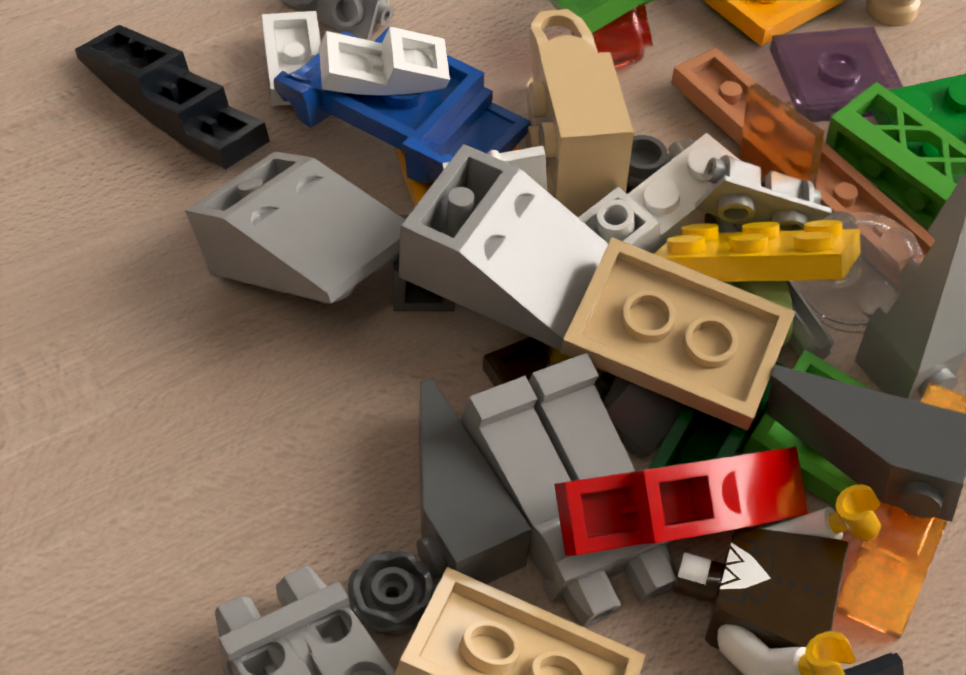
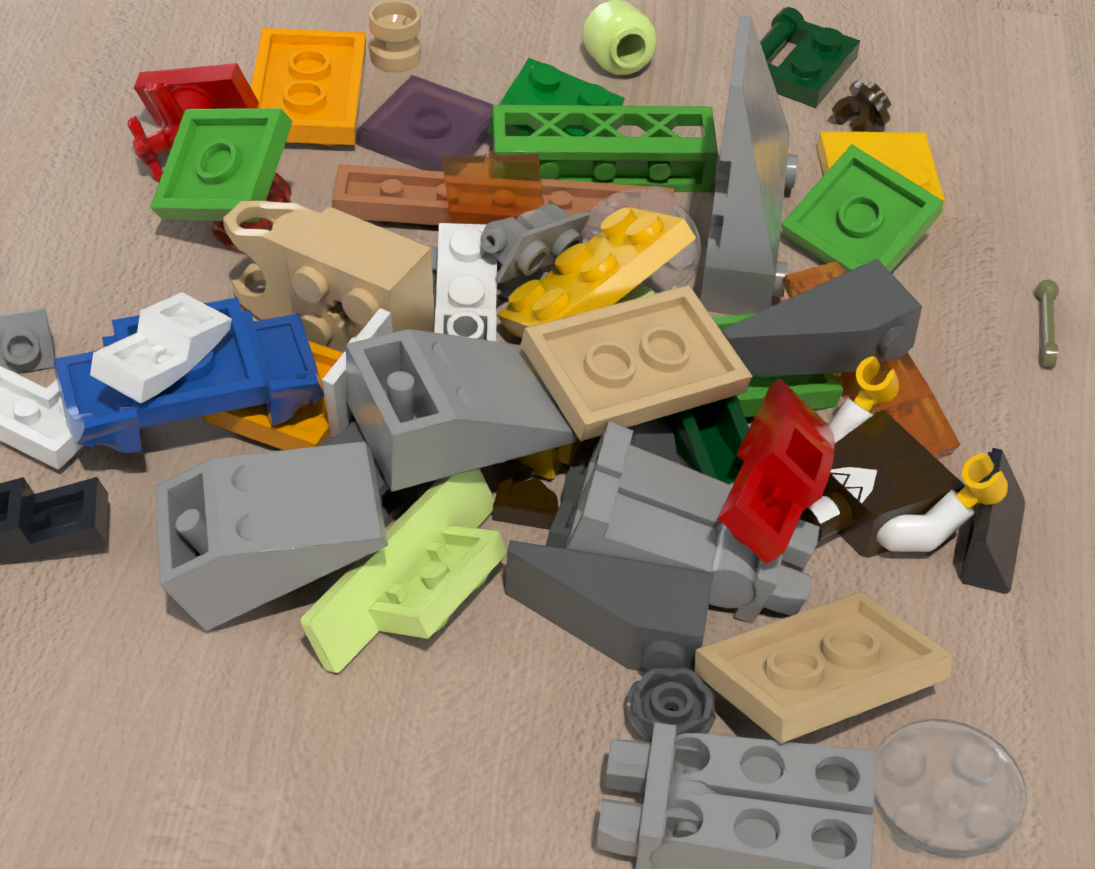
camera: 50 degrees left, 5 degrees down
(364, 344) = (417, 579): none -> yellowish green bracket

